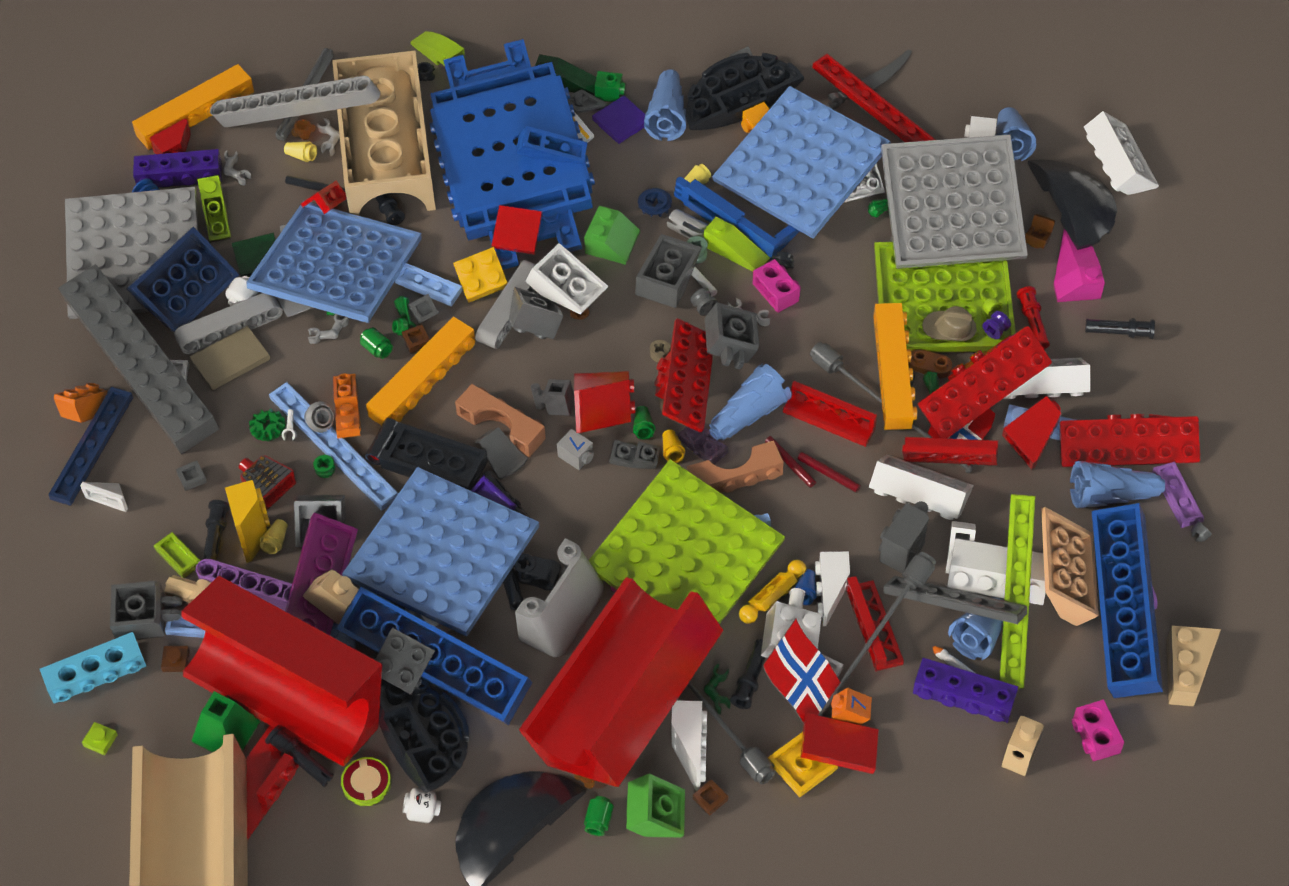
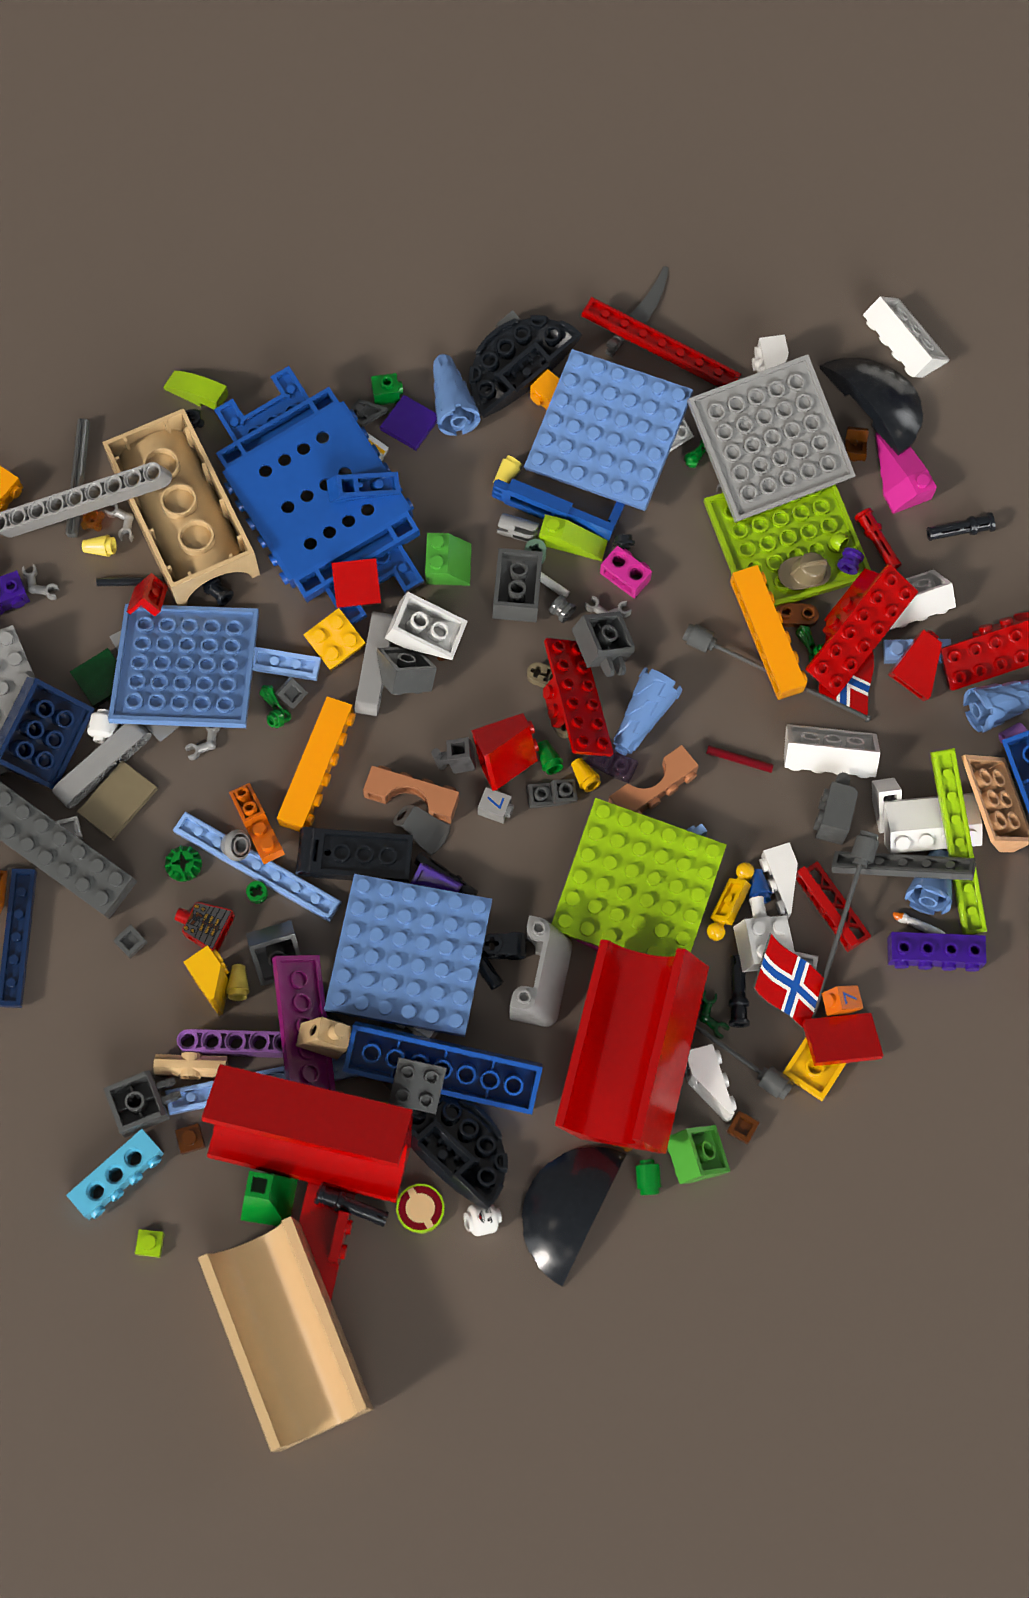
camera: 20 degrees left, 15 degrees up
(105, 493) = (53, 984): white slope -> none
(177, 555) = (149, 1029): lime tile -> none
(214, 208) = (38, 638): lime slope -> none
(215, 524) = (175, 988): black pin -> none
(289, 426) = (207, 860): white hand -> none
(376, 343) = (258, 744): green brick -> none
(415, 338) = (296, 727): reddish brown plate -> none
(571, 76) = (344, 387): dark green slope -> none
(648, 197) = (483, 503): dark blue gear -> none
(793, 464) = (705, 761): dark red bar -> none
(830, 416) = (723, 698): red fence -> none
(950, 451) = (847, 706): red fence -> none
(1022, 137) = (800, 338): medium blue cone -> none
(1025, 740) = (1006, 988): tan torso -> none

